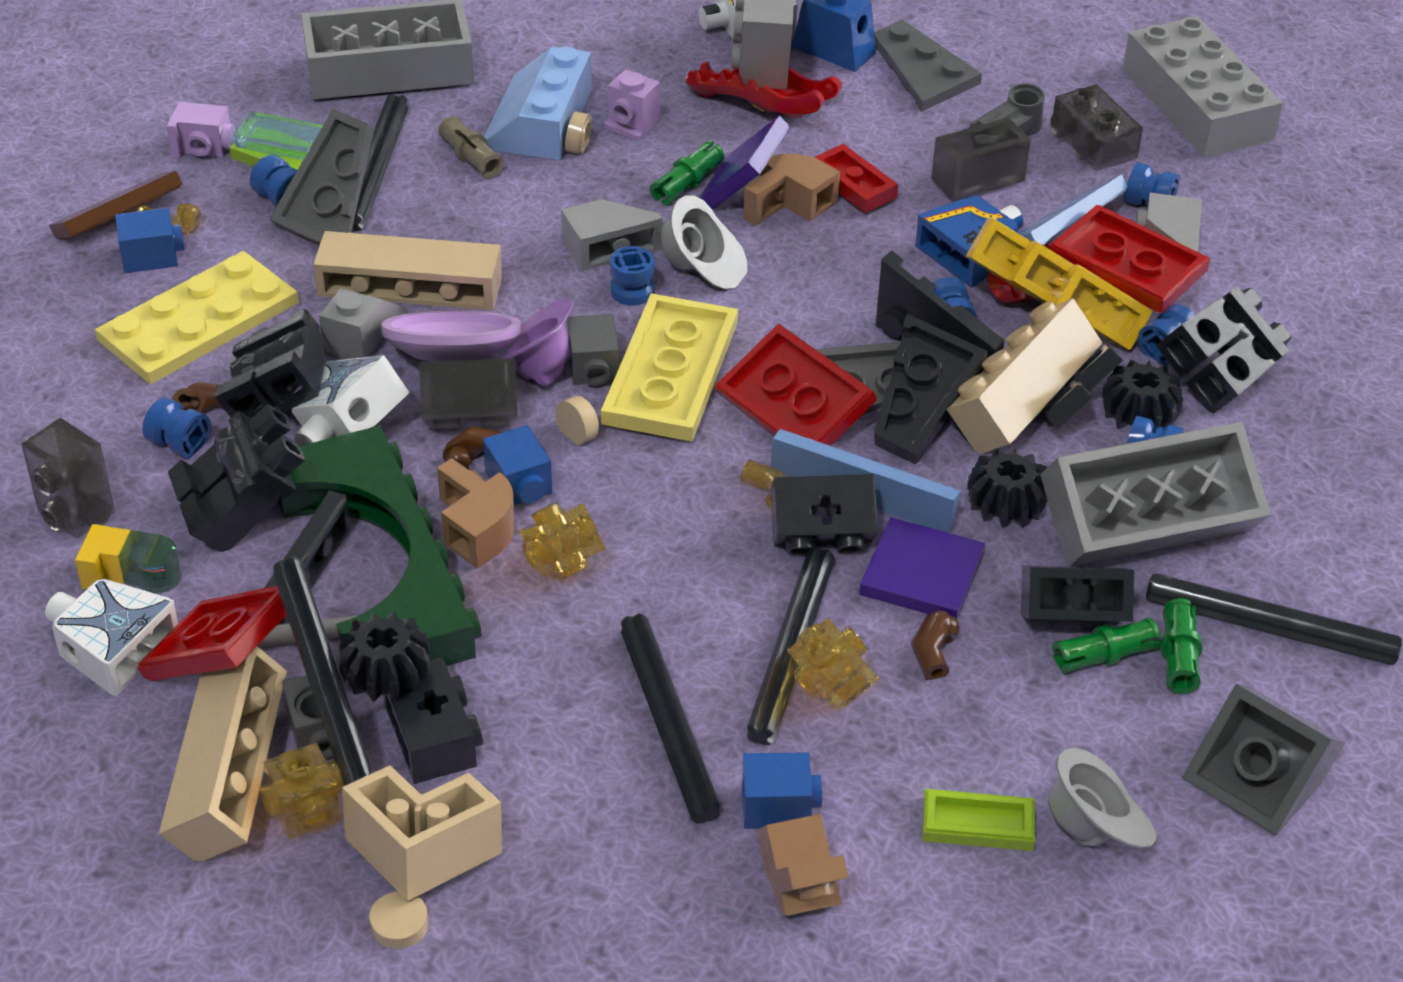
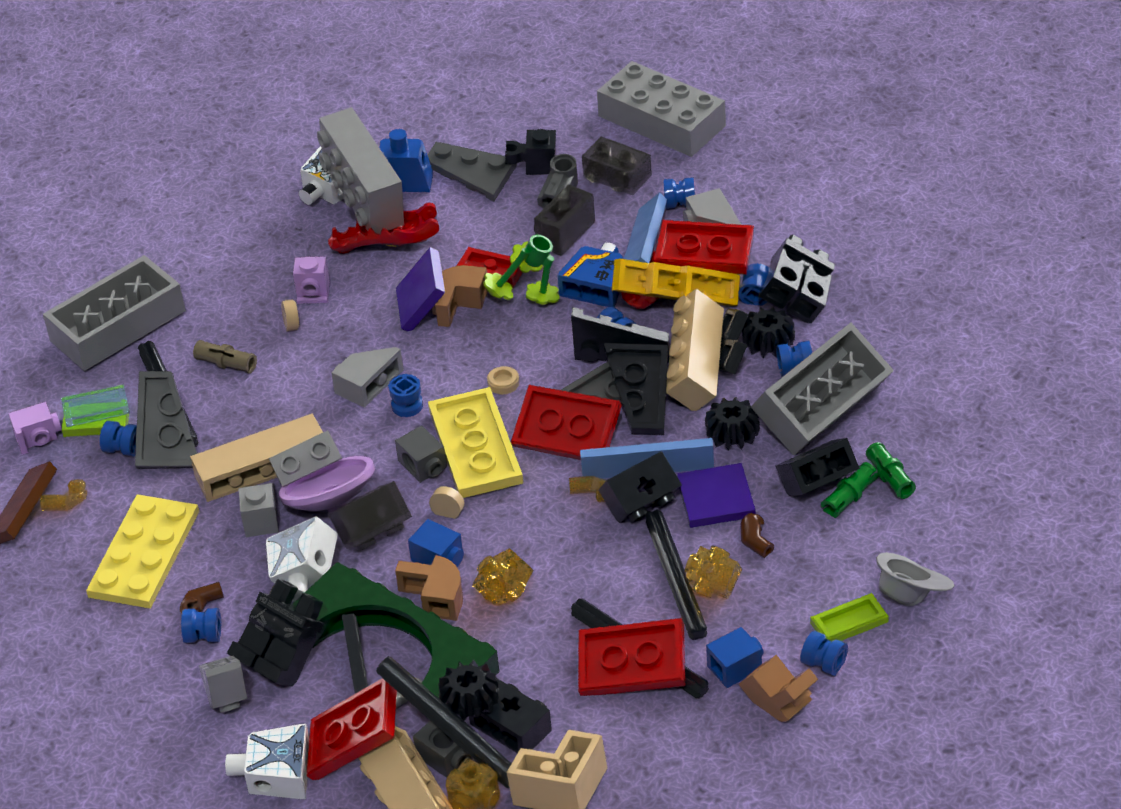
camera: 25 degrees left, 0 degrees up
(68, 478) = (174, 686): clear smoke brick -> none
(127, 499) = (223, 683): none -> light grey slope
(128, 559) = (247, 715): leg -> none
(148, 240) = (68, 516): blue brick -> none
(274, 365) = (237, 557): black hips -> none
(451, 291) = (305, 458): none -> light grey hinge
(467, 445) = (392, 548): reddish brown arm -> none
(541, 103) = (247, 306): light blue slope -> none
(542, 344) = (389, 460): medium lavender piece -> none
(642, 722) = (631, 657): none -> red tile
(687, 172) = (382, 310): green pin -> none
(702, 243) = (432, 354): light grey piece -> none
(766, 310) = (503, 380): none -> tan tile
(899, 180) = (528, 256): none -> plant
(900, 842) = (824, 653): none -> blue wheel
(1008, 67) = (537, 151): none -> black brick
(1262, 758) = (976, 512): dark grey slope -> none
(1278, 619) = (930, 430): black axle -> none

